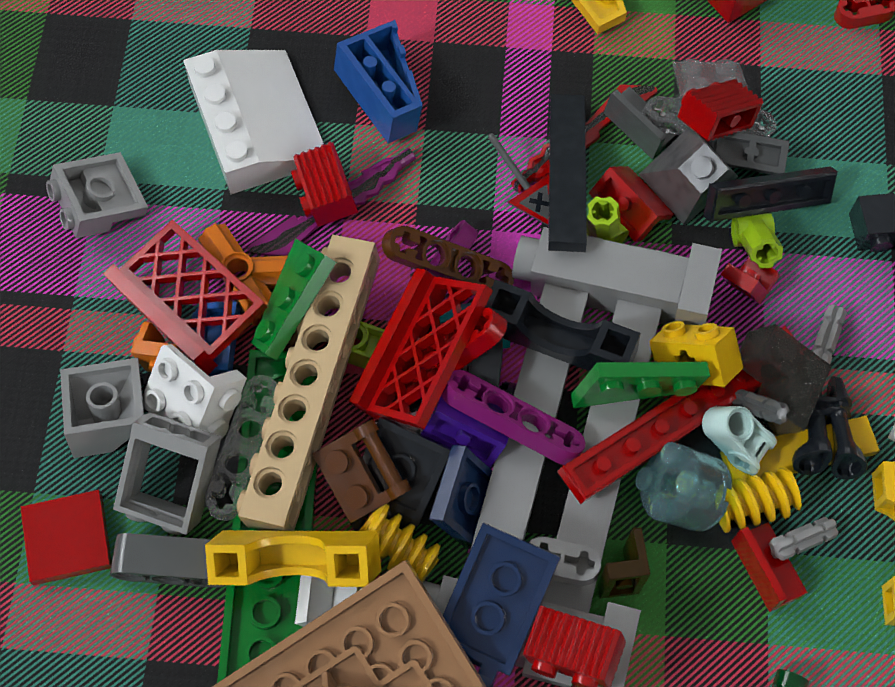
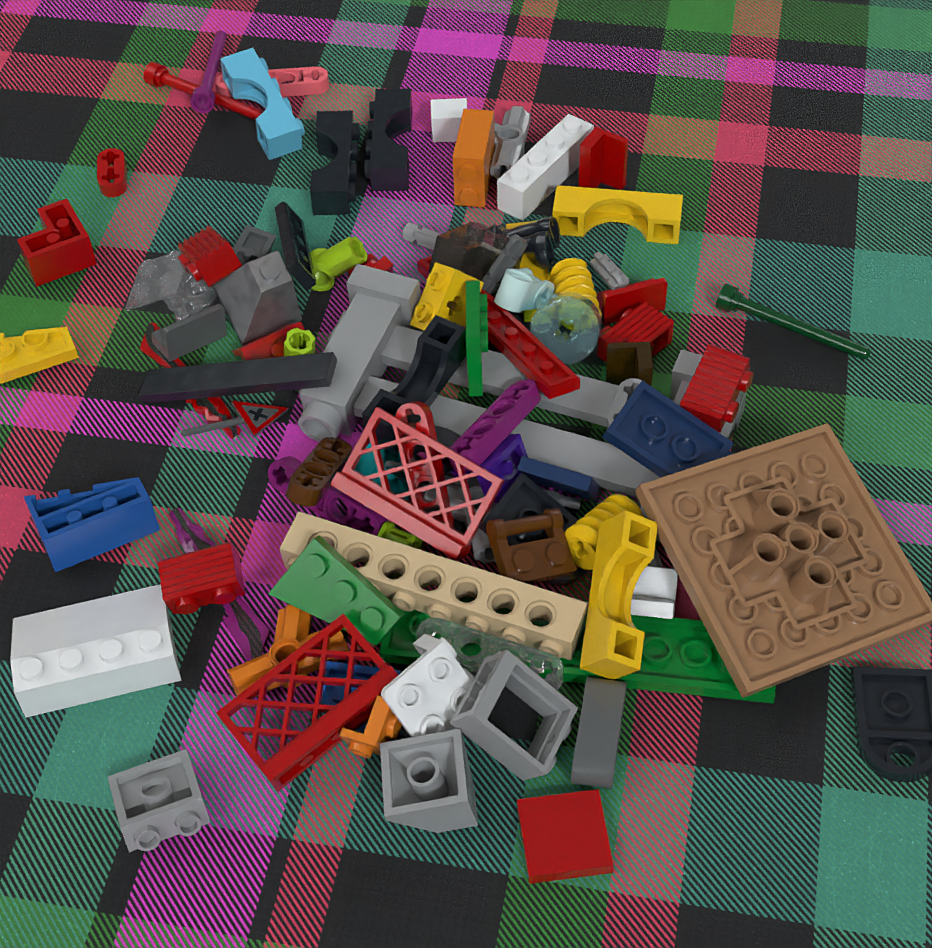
camera: 80 degrees left, 15 degrees down
(700, 572) = (638, 325): none -> red brick

